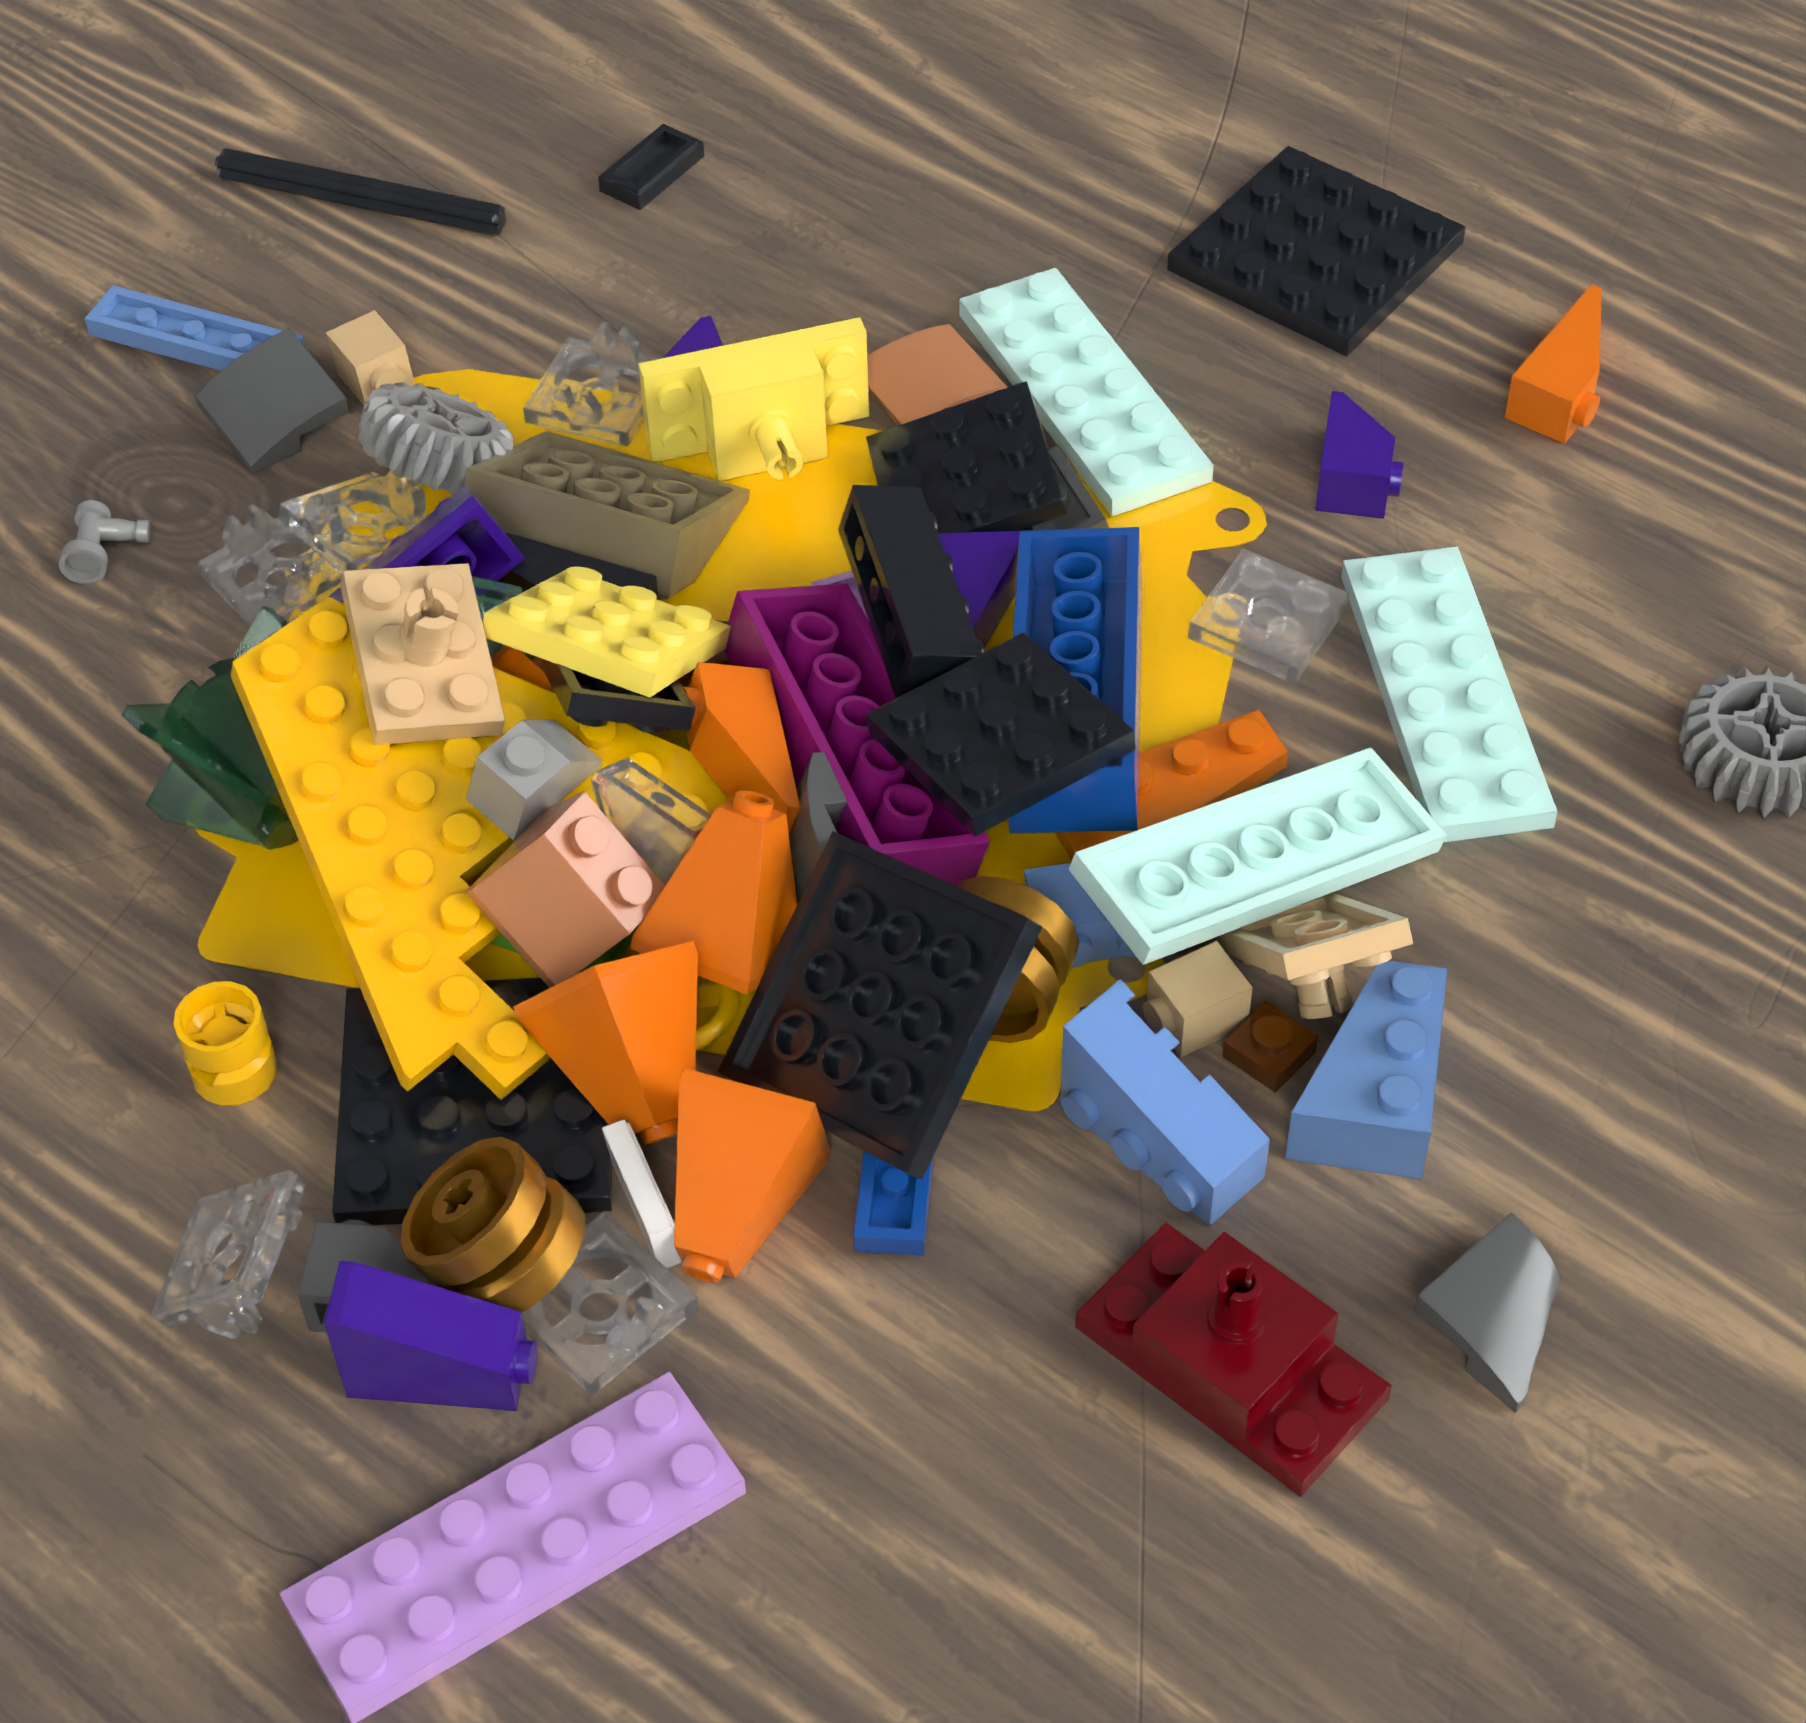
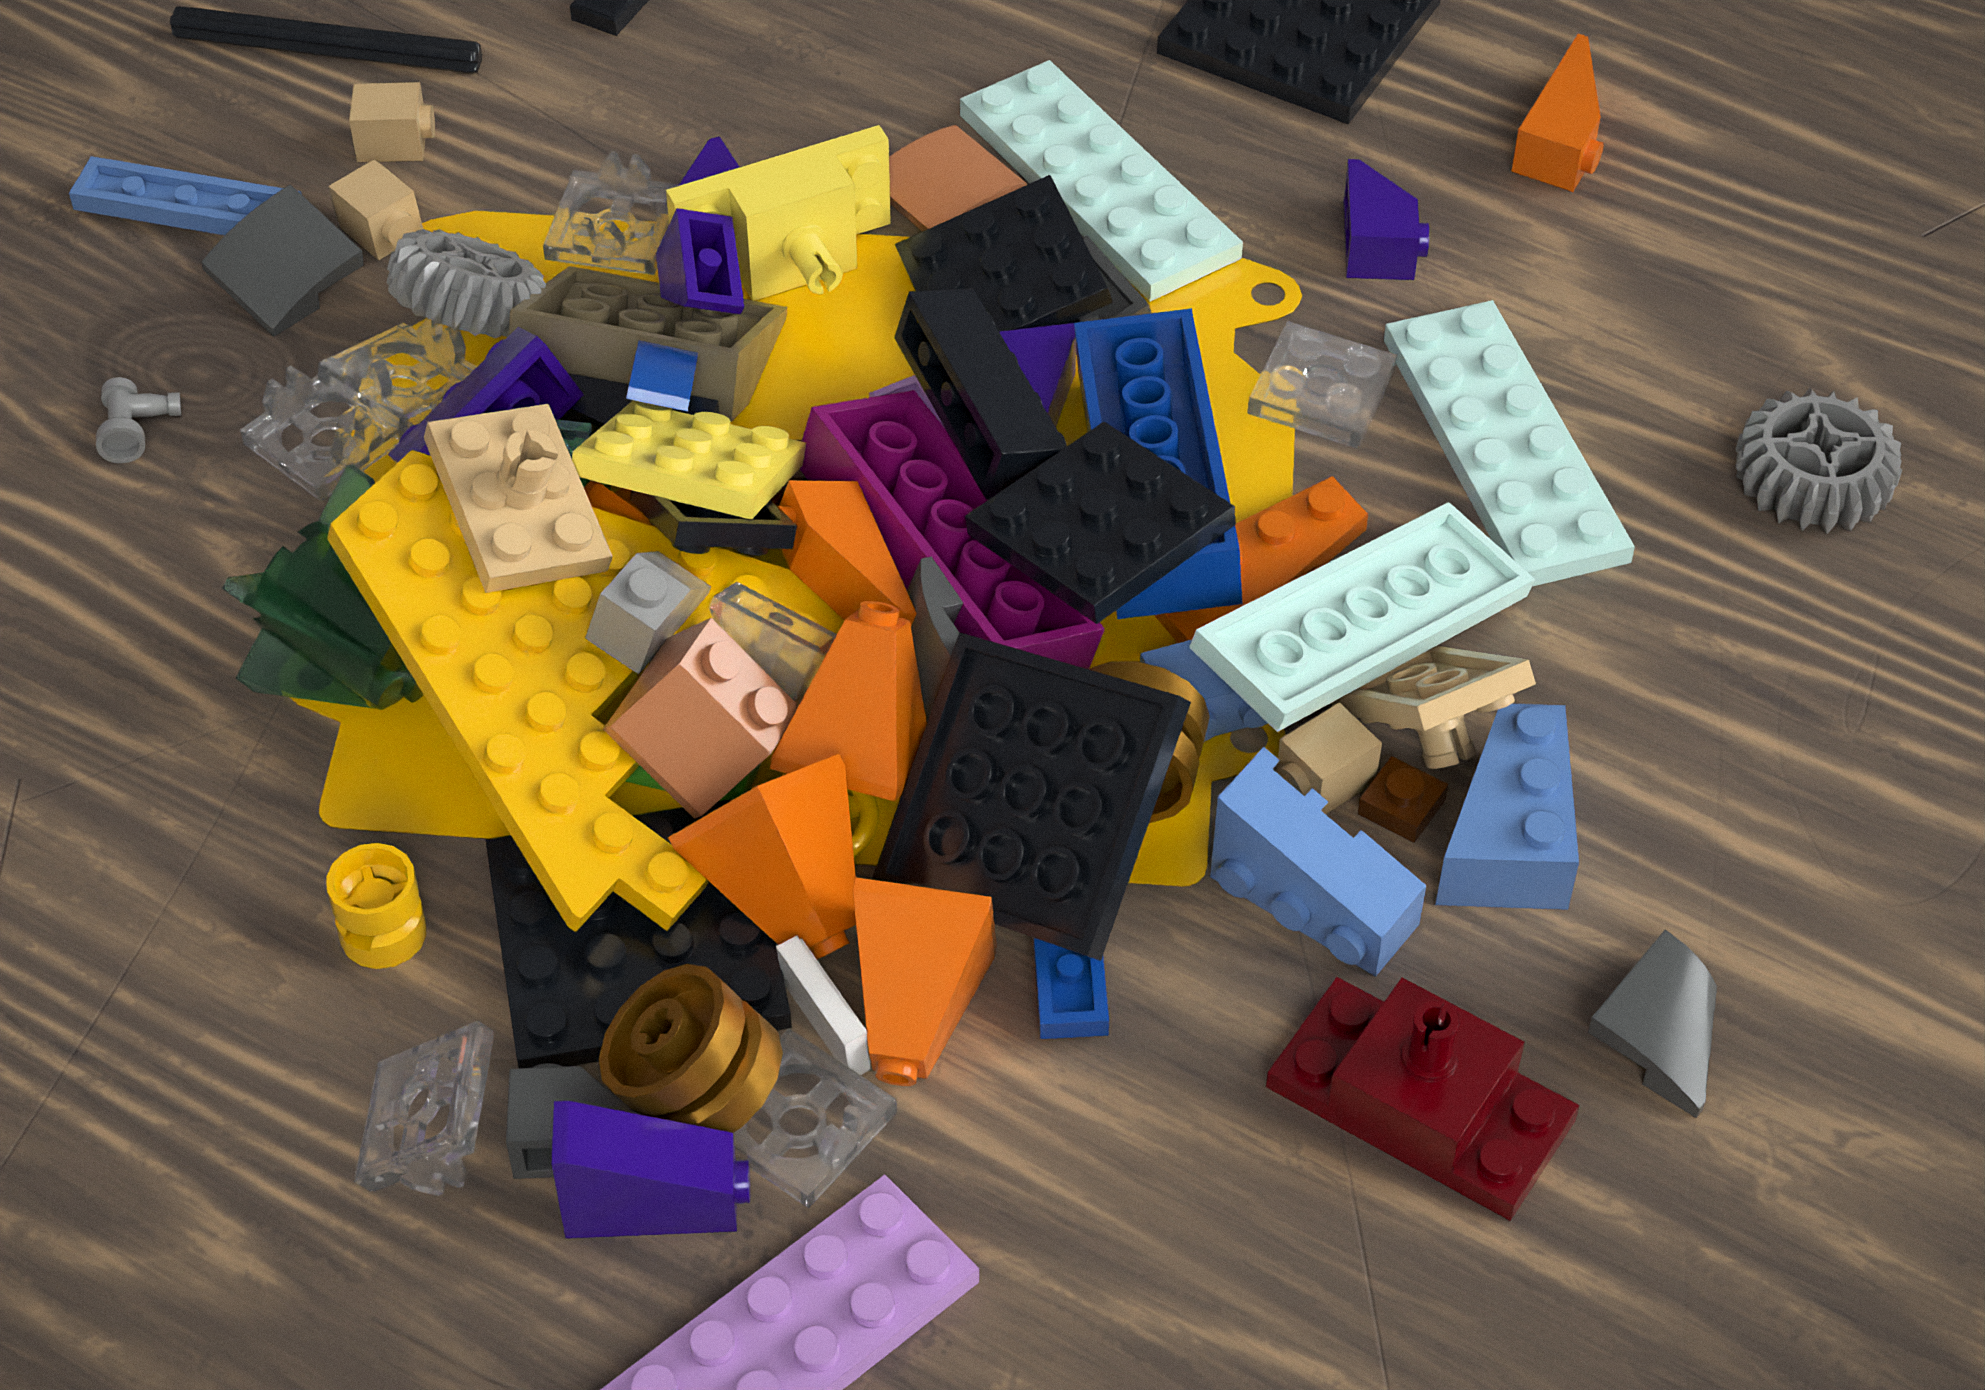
camera: 10 degrees left, 0 degrees up
(401, 275) = (390, 122): none -> tan brick
(596, 546) = (662, 375): none -> blue slope
(662, 438) = (700, 262): none -> dark purple slope

